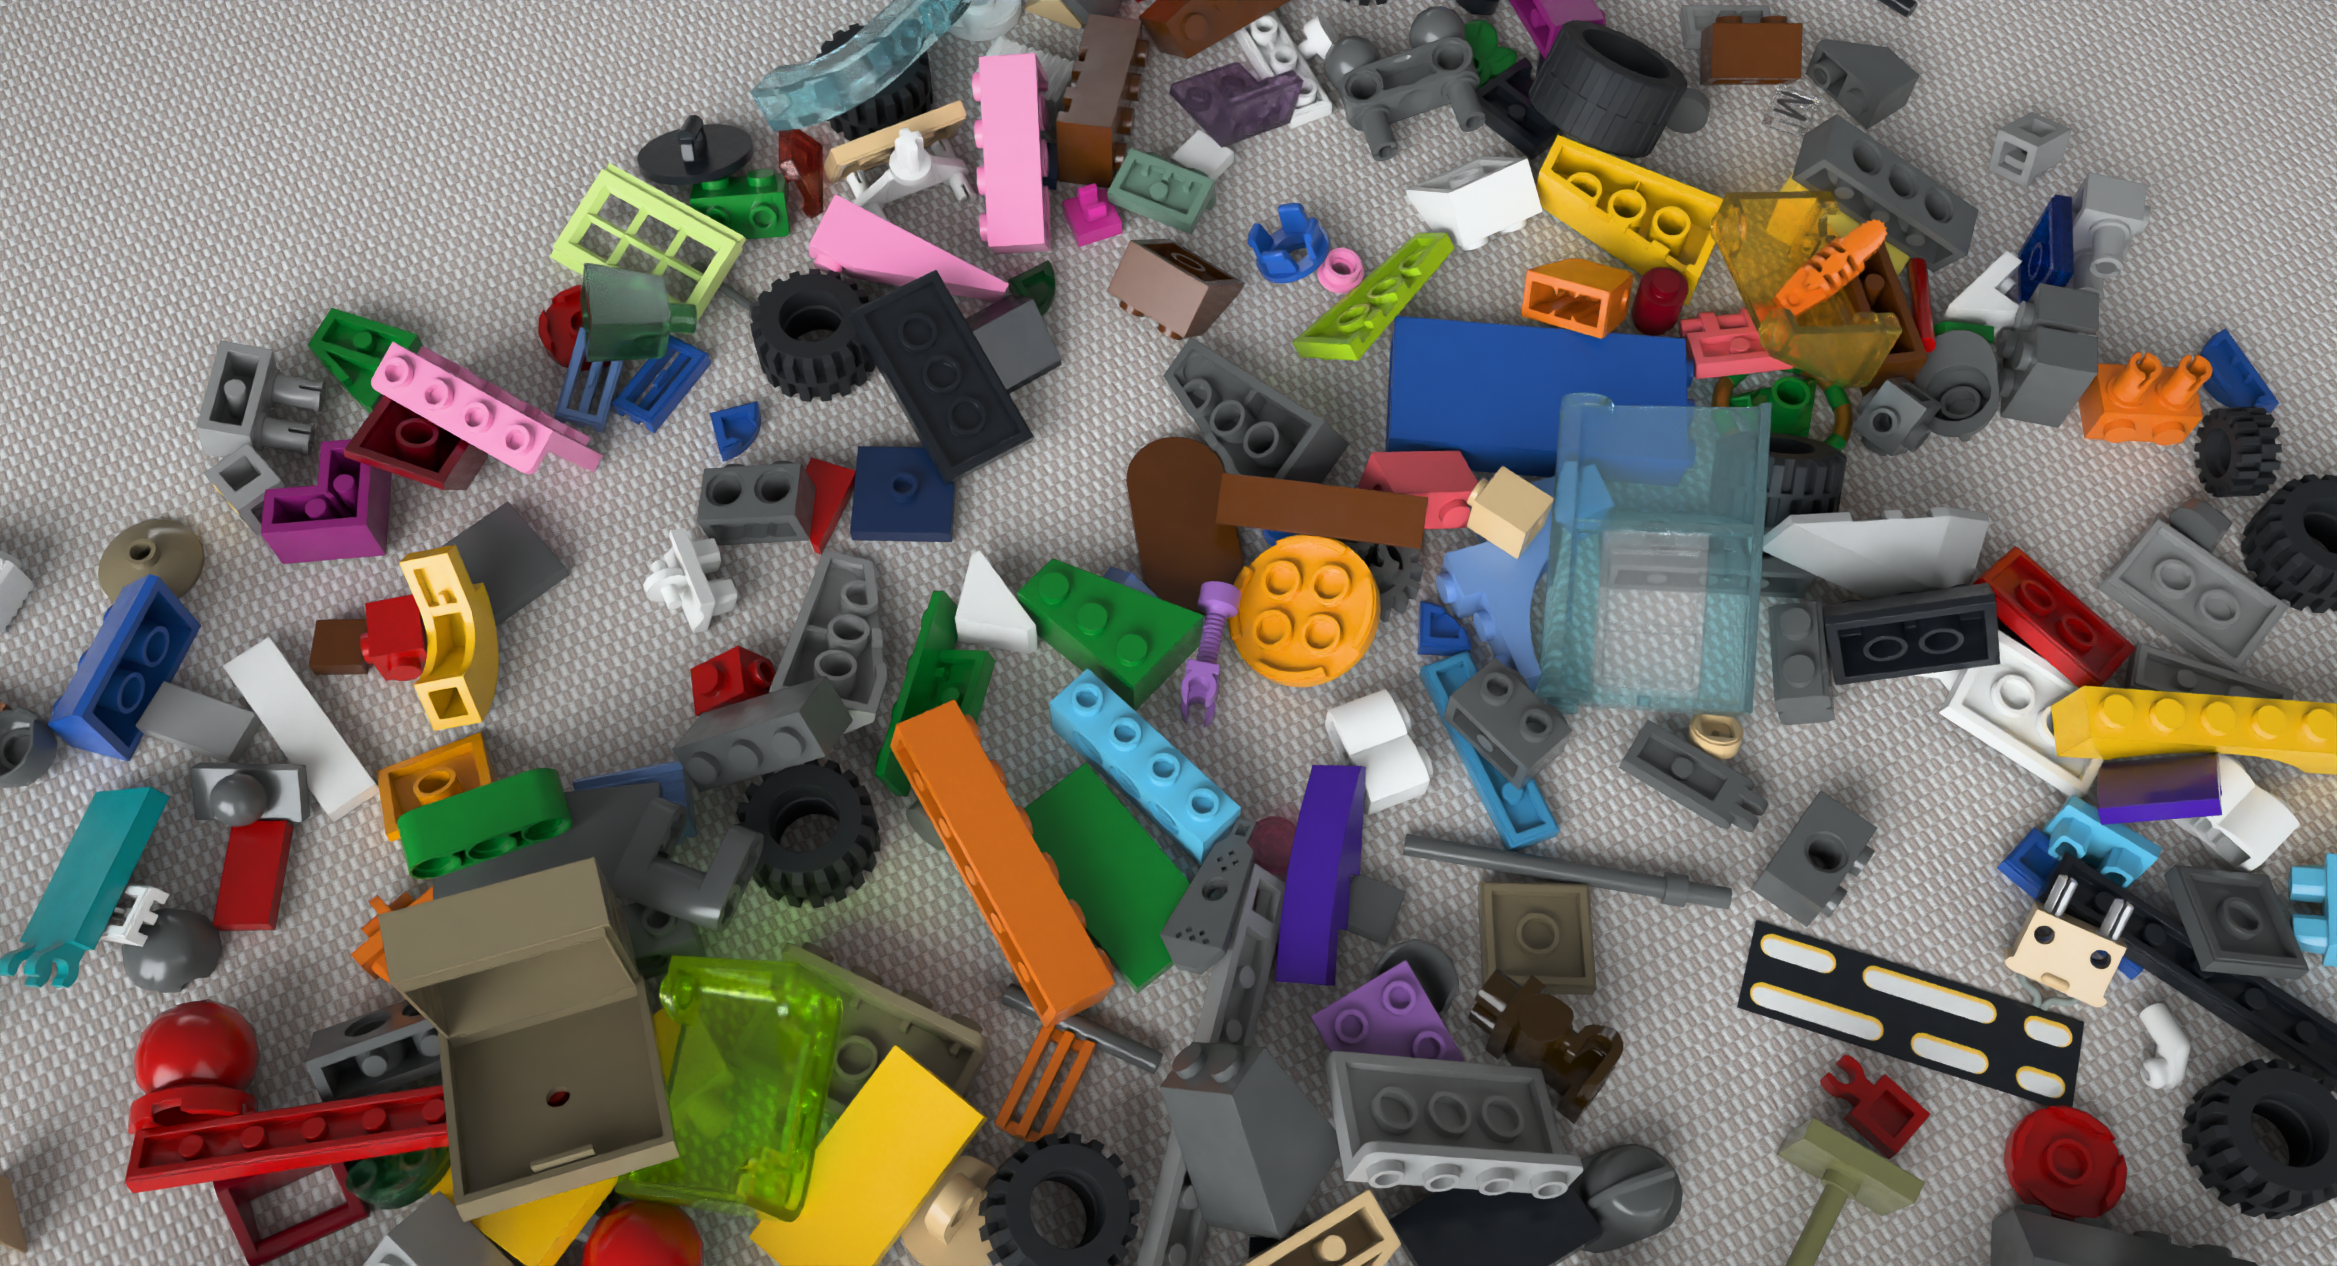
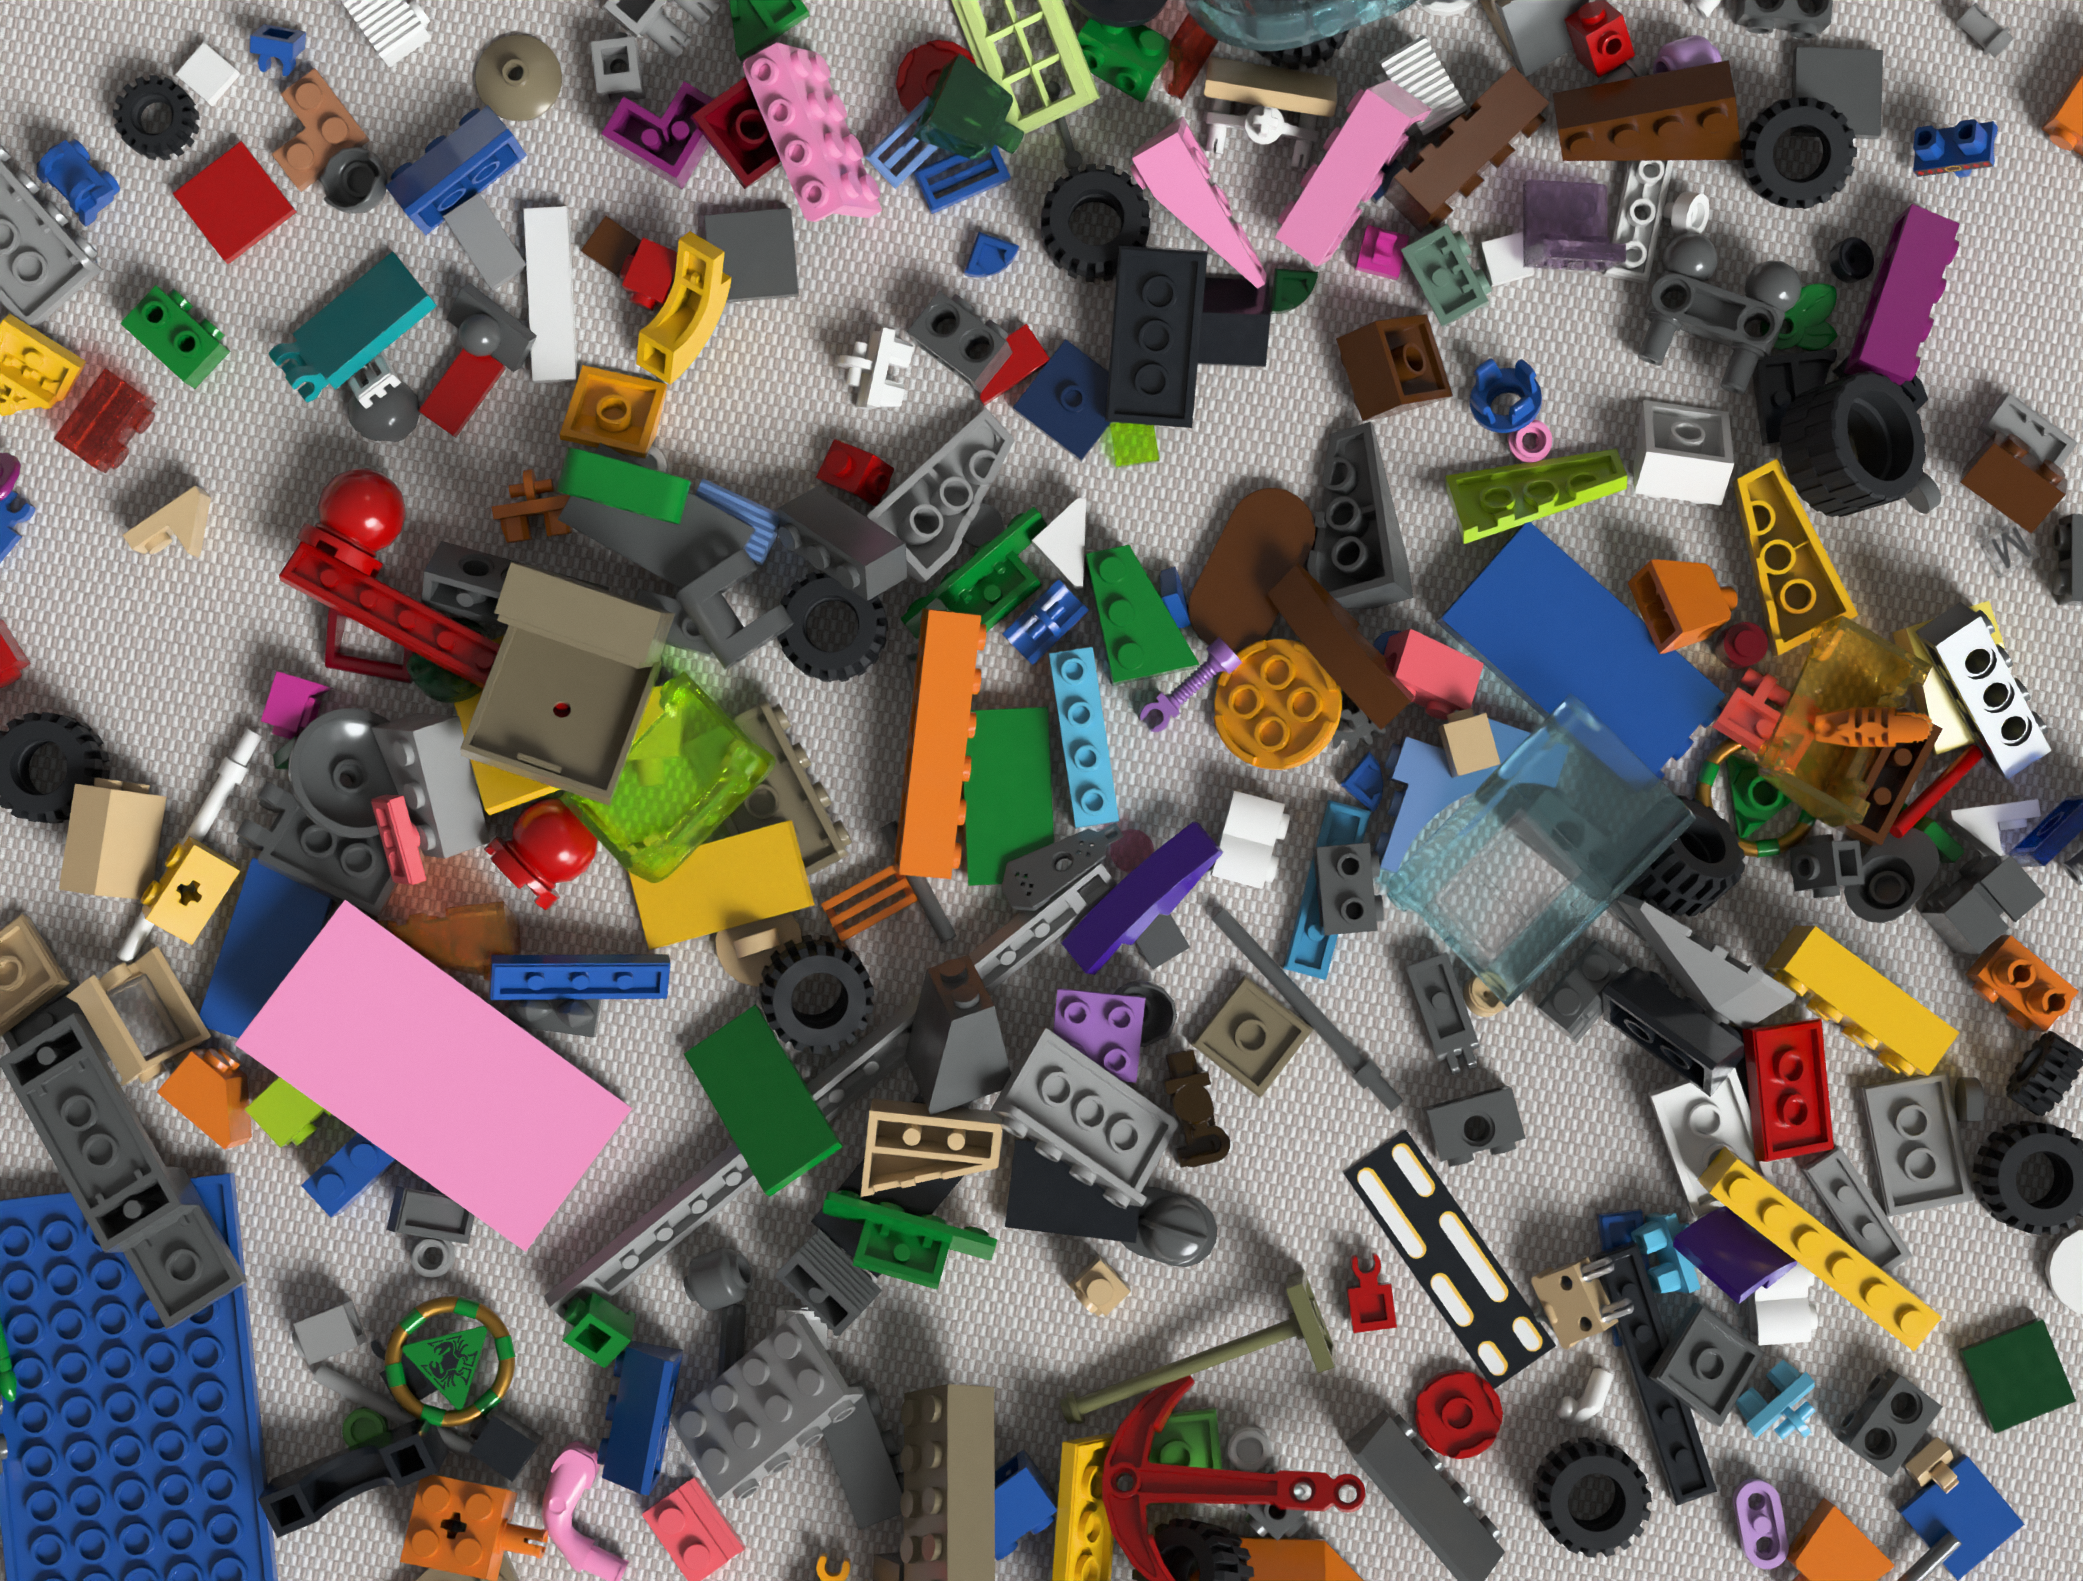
camera: 35 degrees right, 25 degrees up
(897, 648) = (984, 526): none -> dark grey tile
(989, 493) = (1133, 444): none -> clear neon green tile
(1024, 688) = (1045, 622): none -> blue hips
(2046, 492) = (1861, 1000): none -> yellow brick

